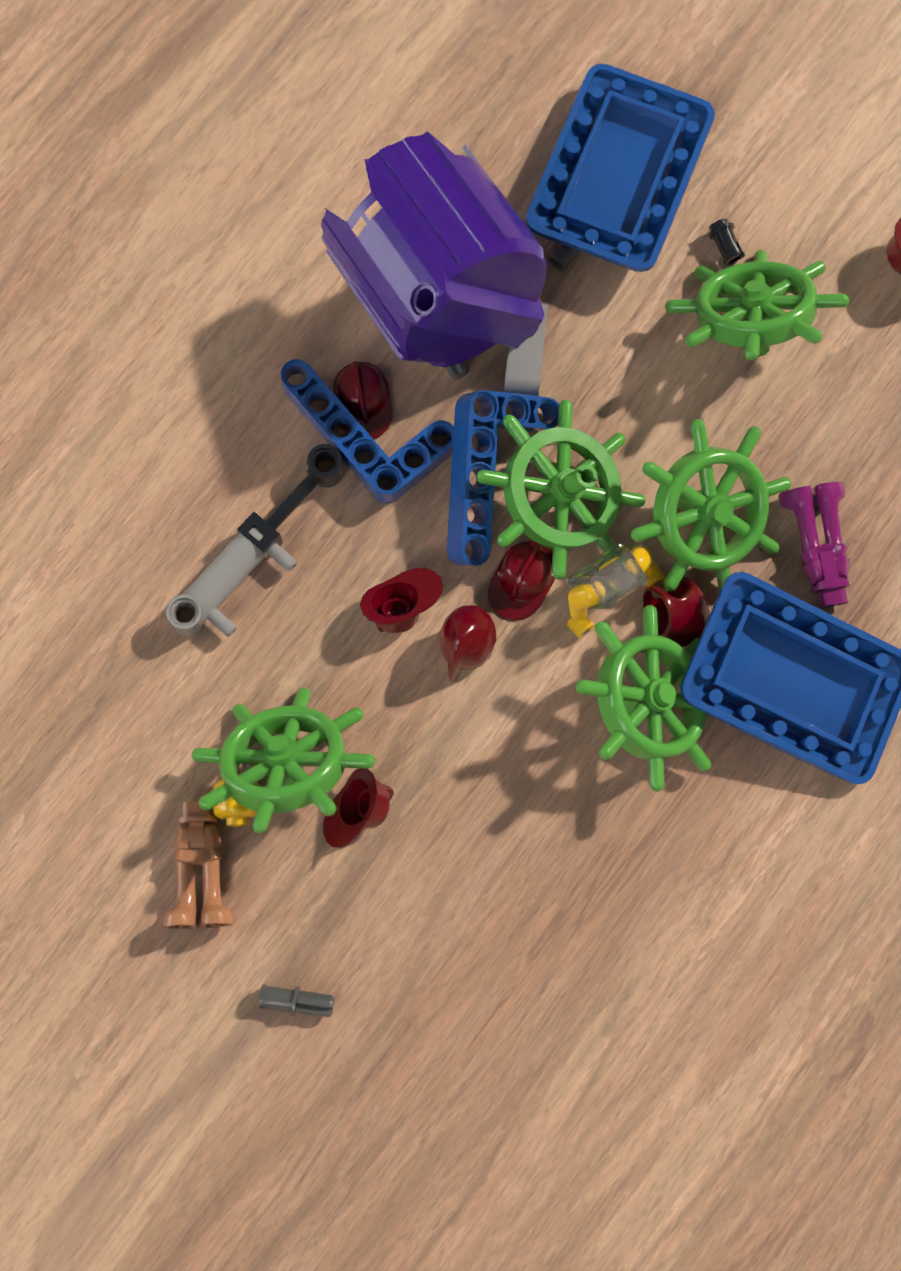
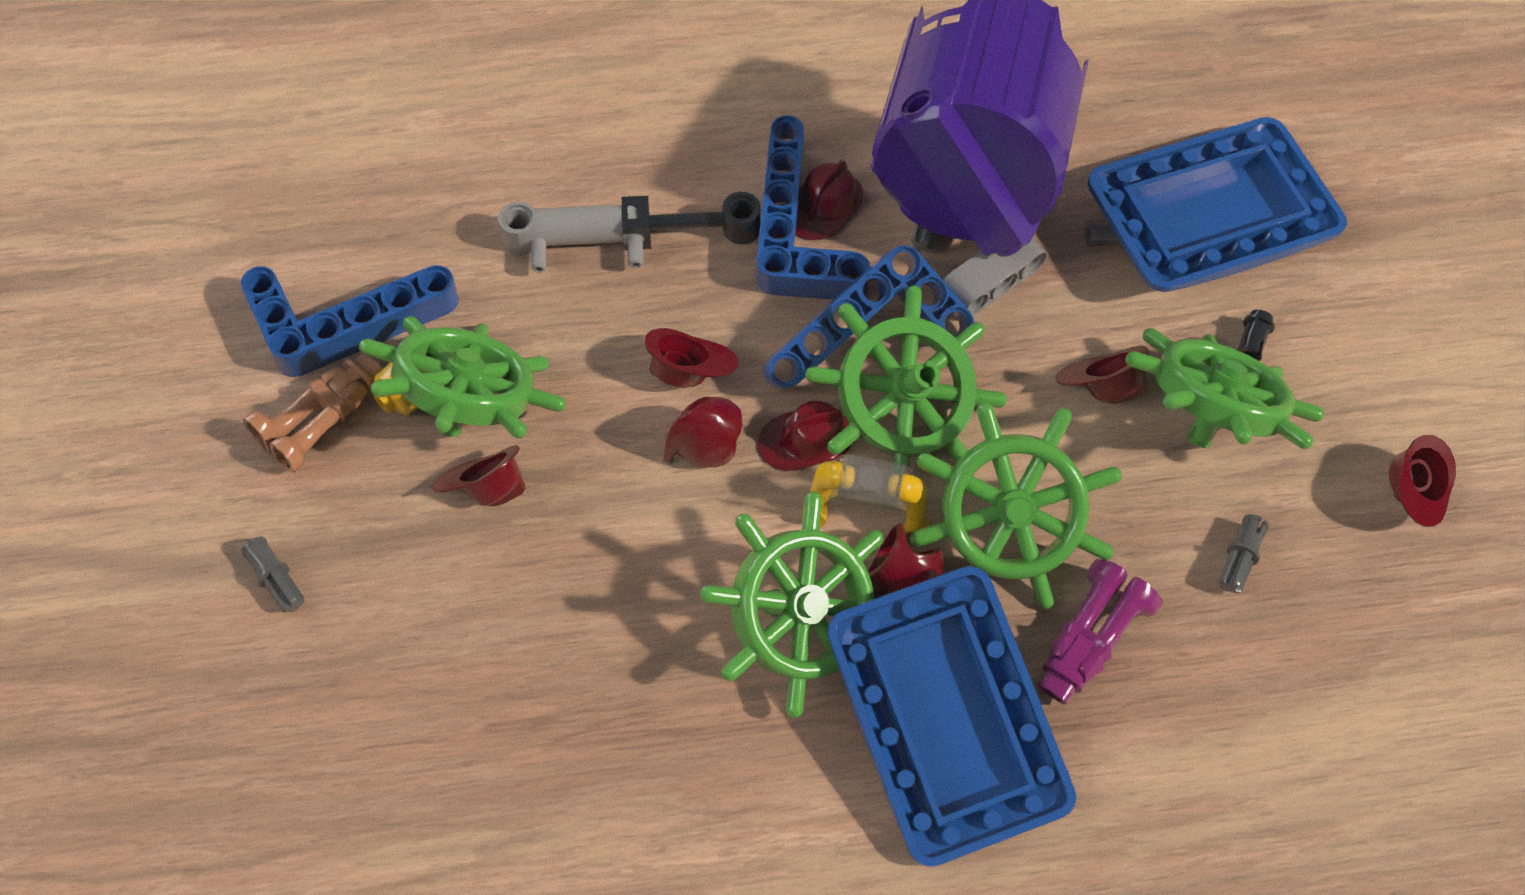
camera: 45 degrees right, 15 degrees down
(143, 796) = (343, 319): none -> blue beam
(664, 357) = (1107, 376): none -> dark red piece
(856, 403) = (1243, 553): none -> dark grey axle

